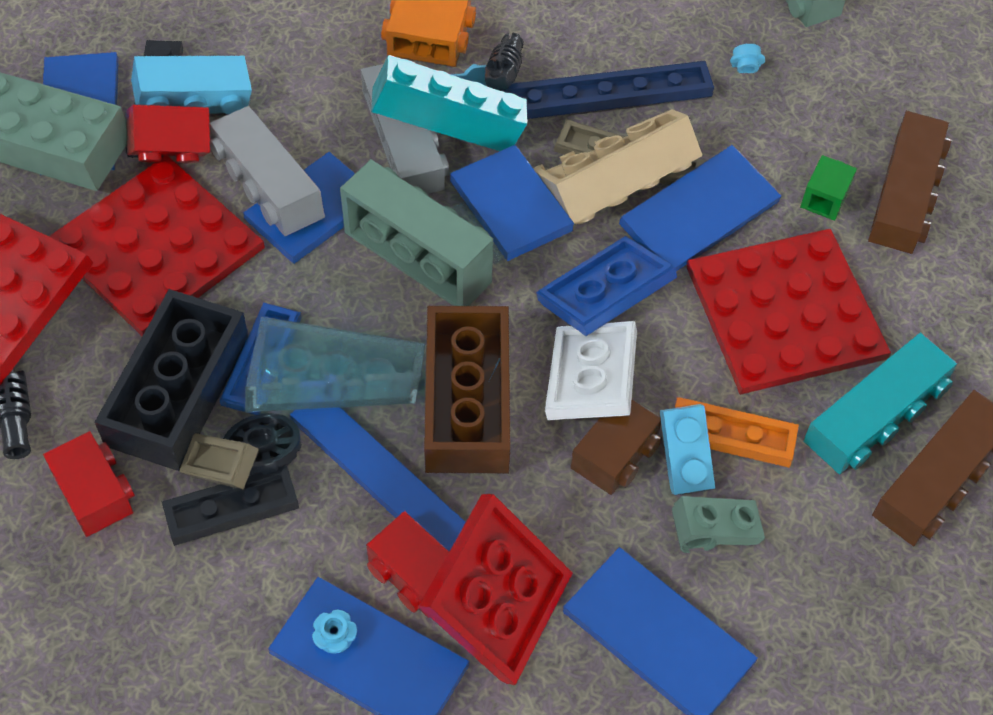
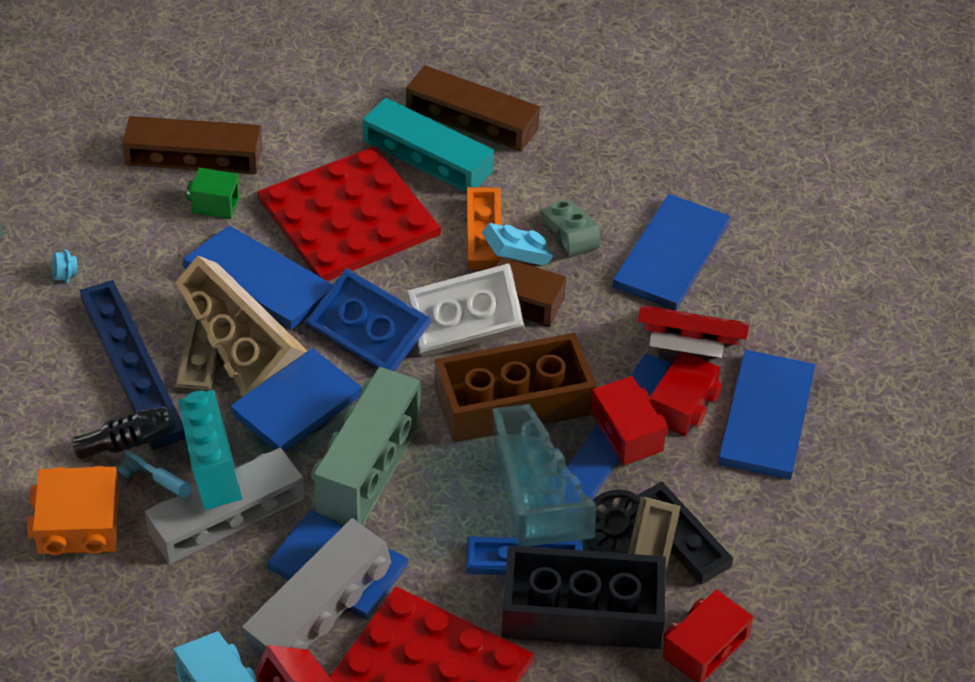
camera: 105 degrees left, 10 degrees down
(334, 642) = (764, 427): medium azure plate -> none
(383, 483) = (628, 420): none -> red brick

